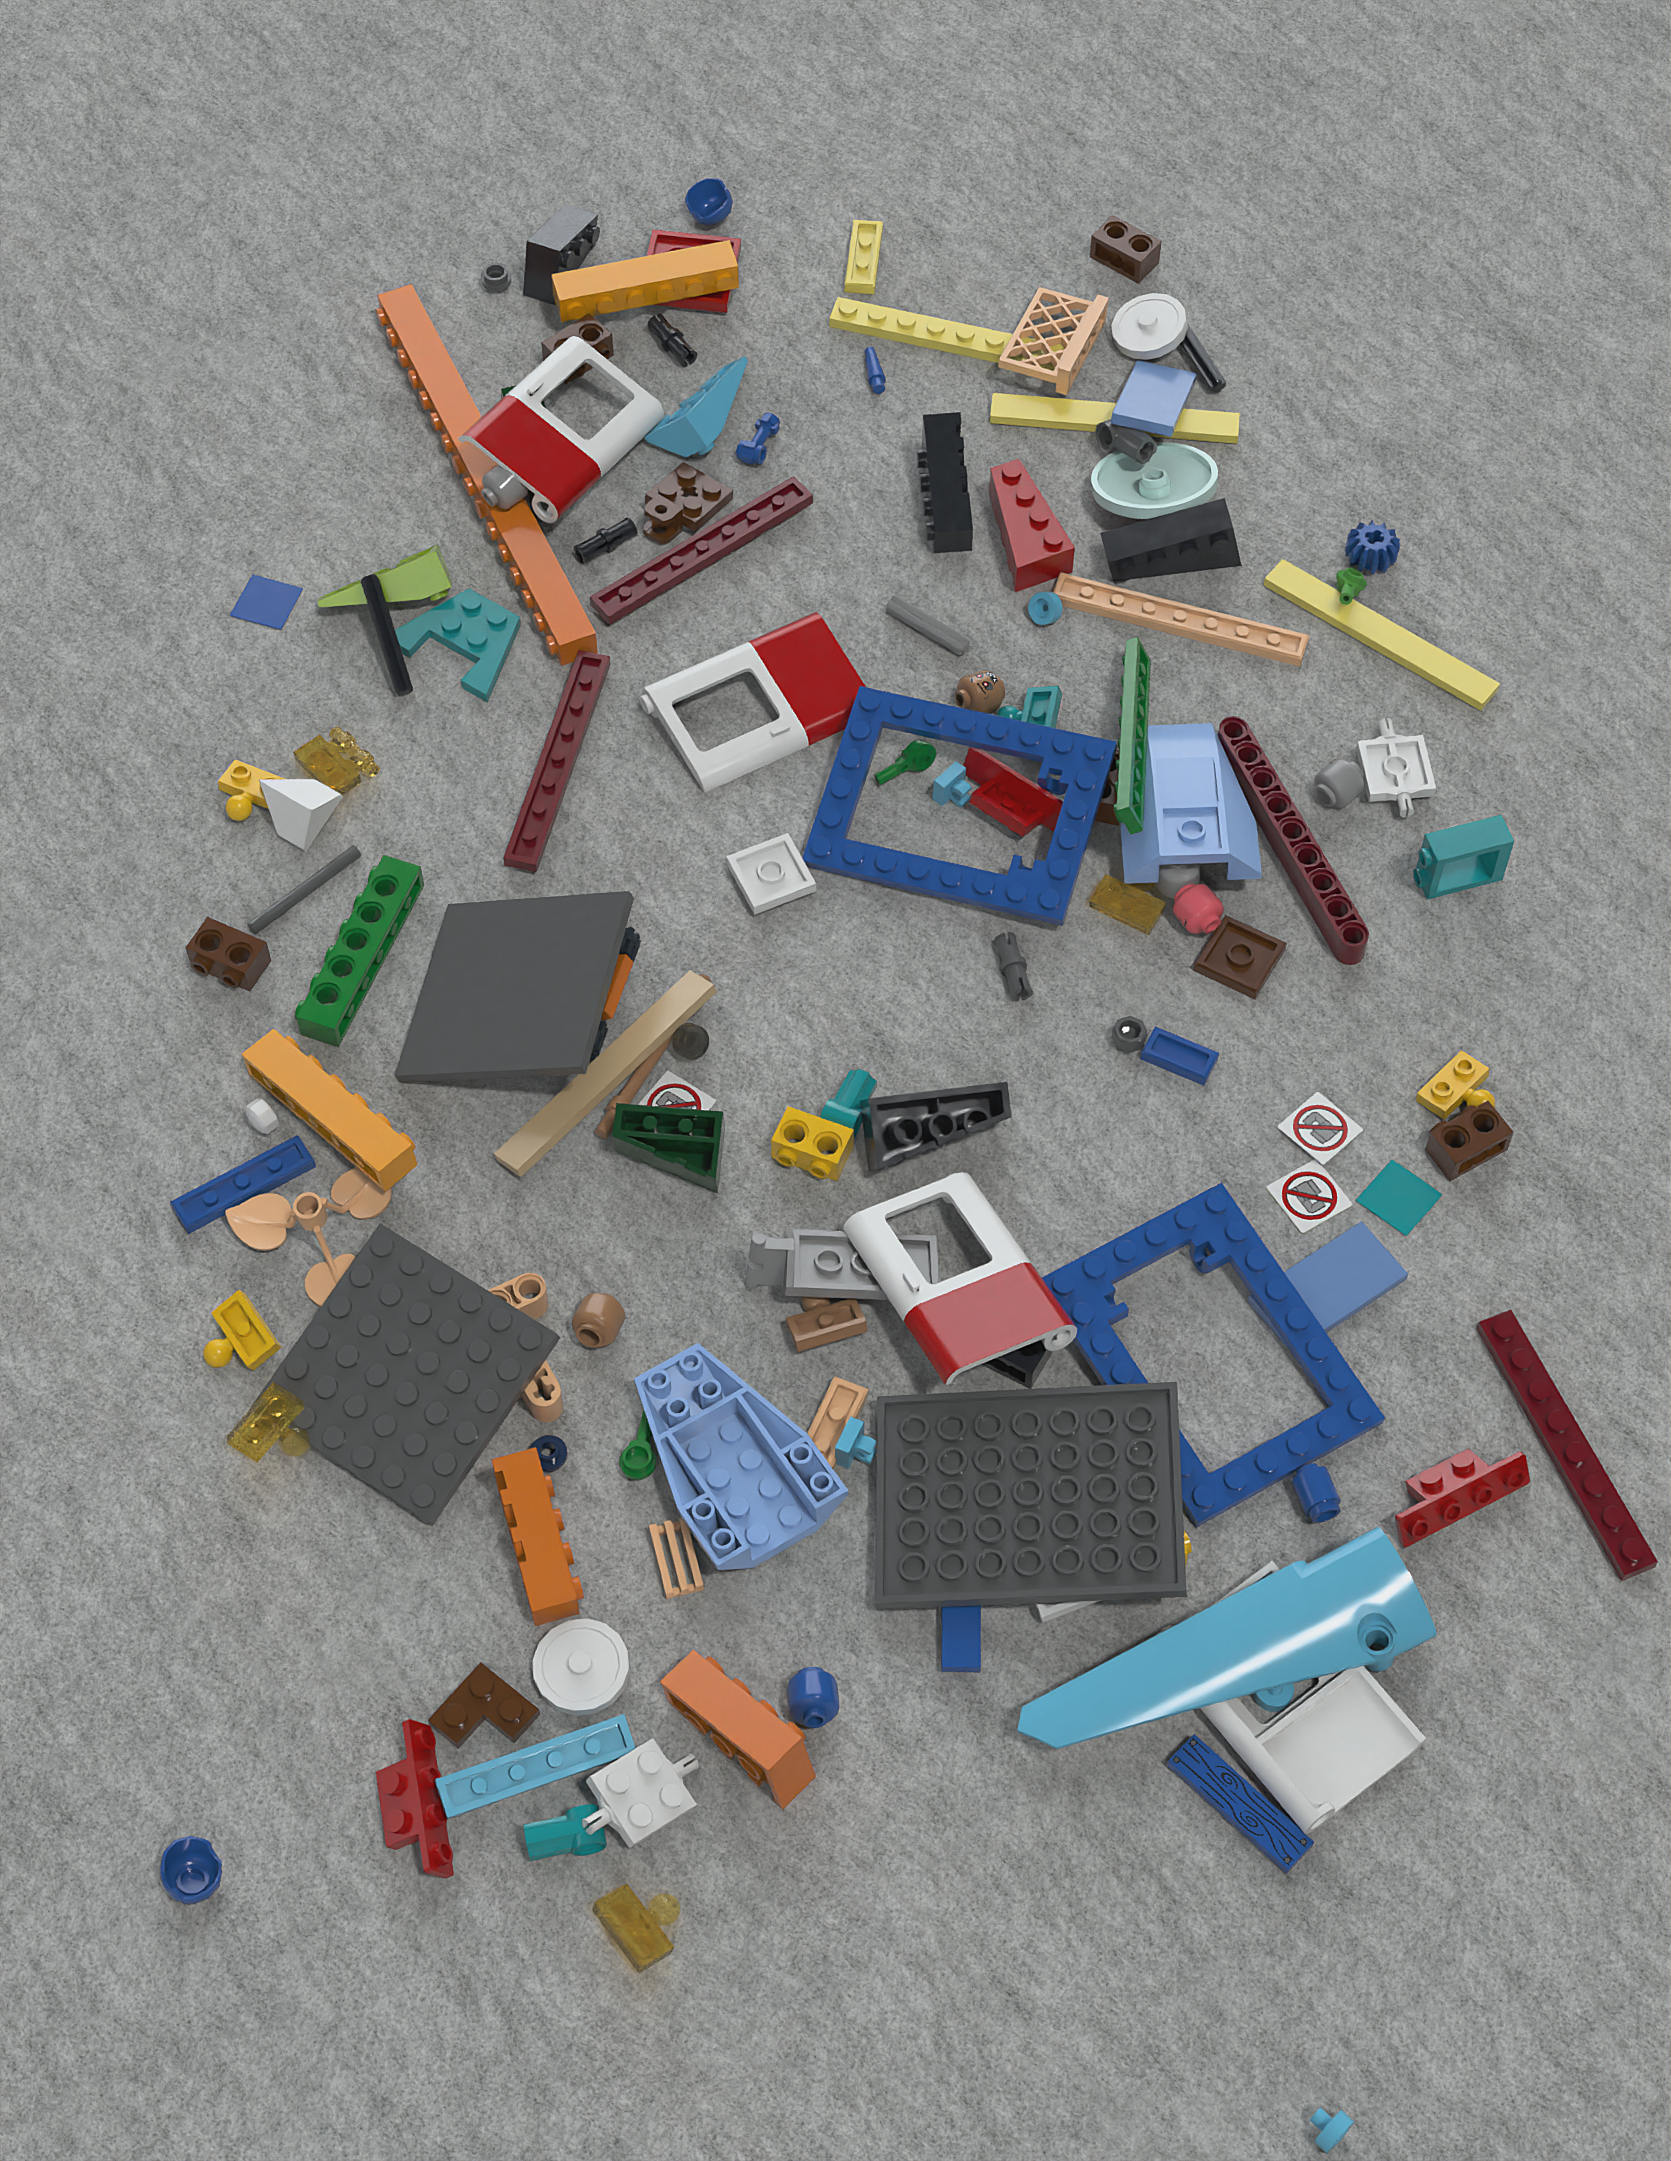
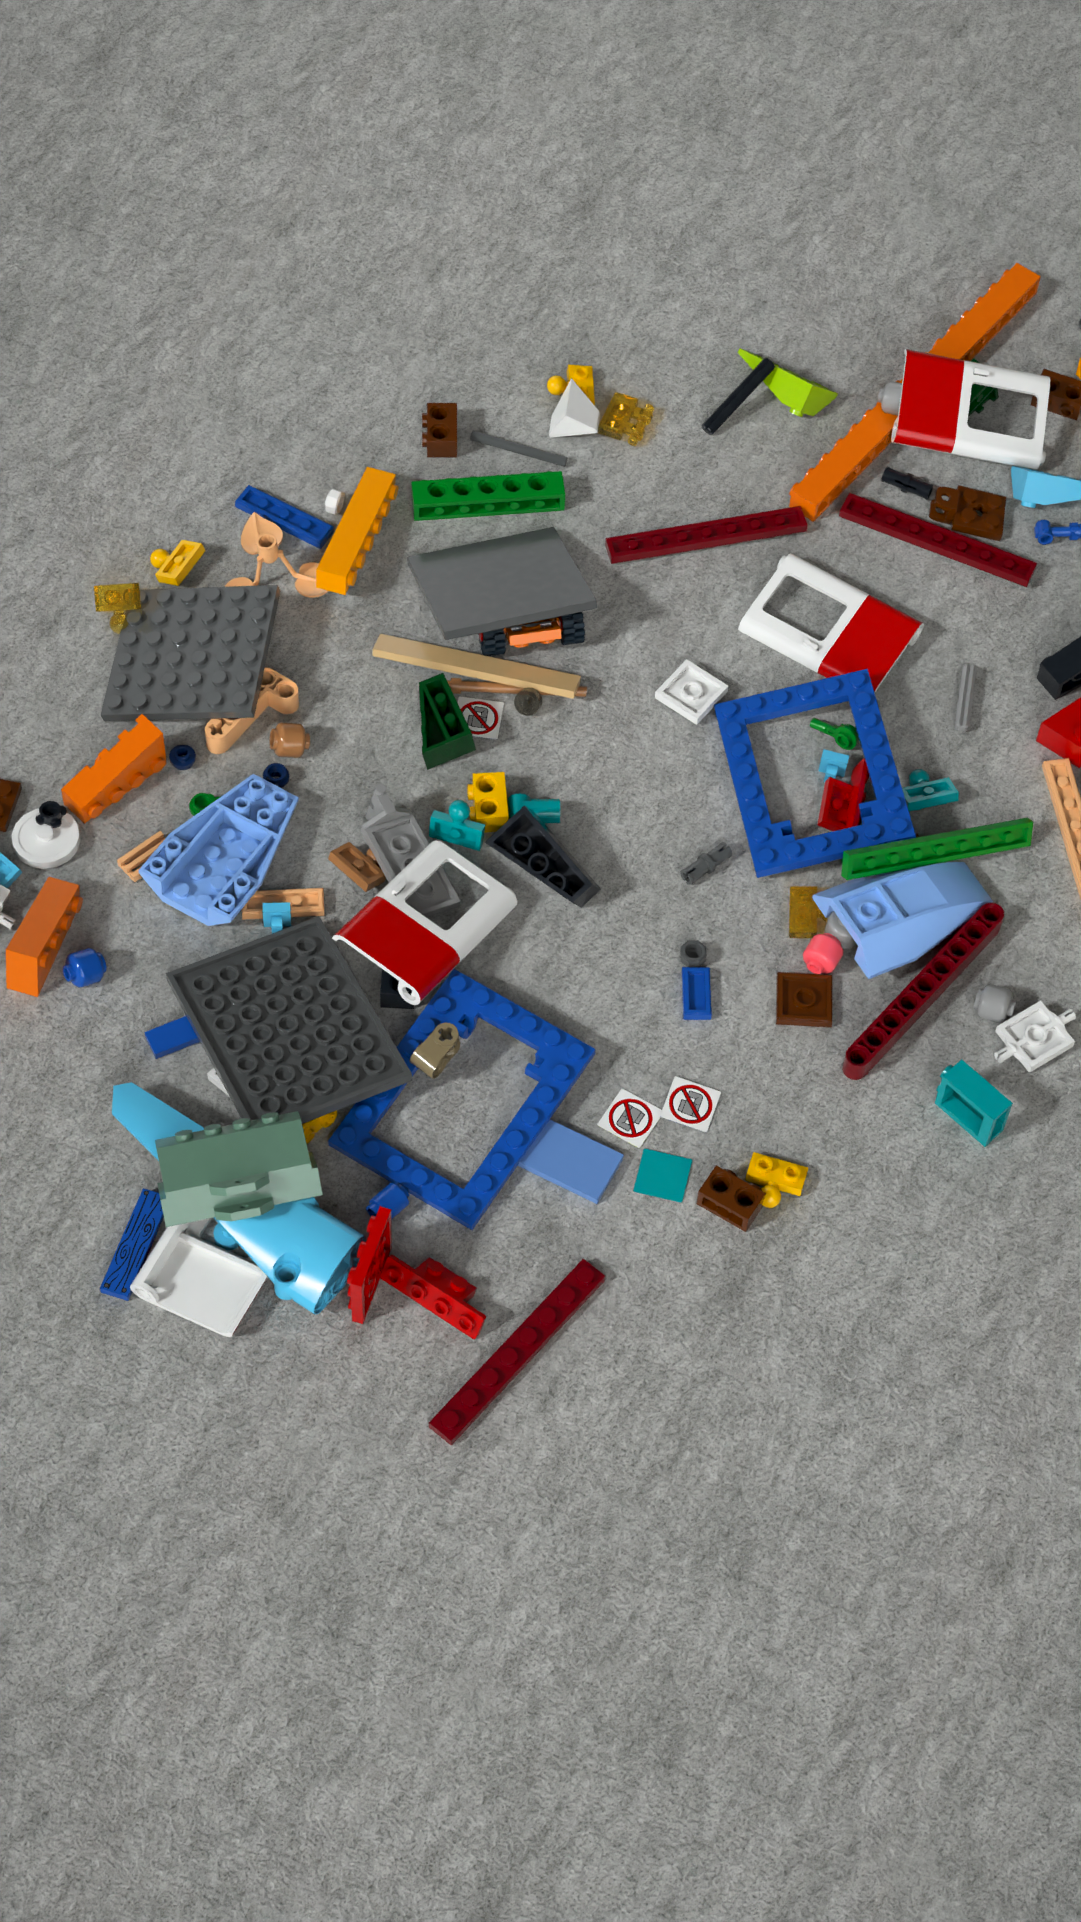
camera: 60 degrees right, 0 degrees up
(266, 602) = (731, 327): blue sticker -> none
(470, 628) = (783, 443): teal wing -> none
(559, 1631) = (51, 808): none -> black plate
(638, 1350) = (279, 770): none -> dark blue plate
(836, 1191) = (456, 828): none -> teal plate
(980, 692) = (923, 750): medium nougat head -> none
(1045, 608) = (1028, 761): medium azure tile -> none
(1152, 1348) = (434, 1053): none -> dark tan piece
(1228, 1632) = (235, 1169): none -> sand green piece
(1420, 1537) = (372, 1258): none -> red plate

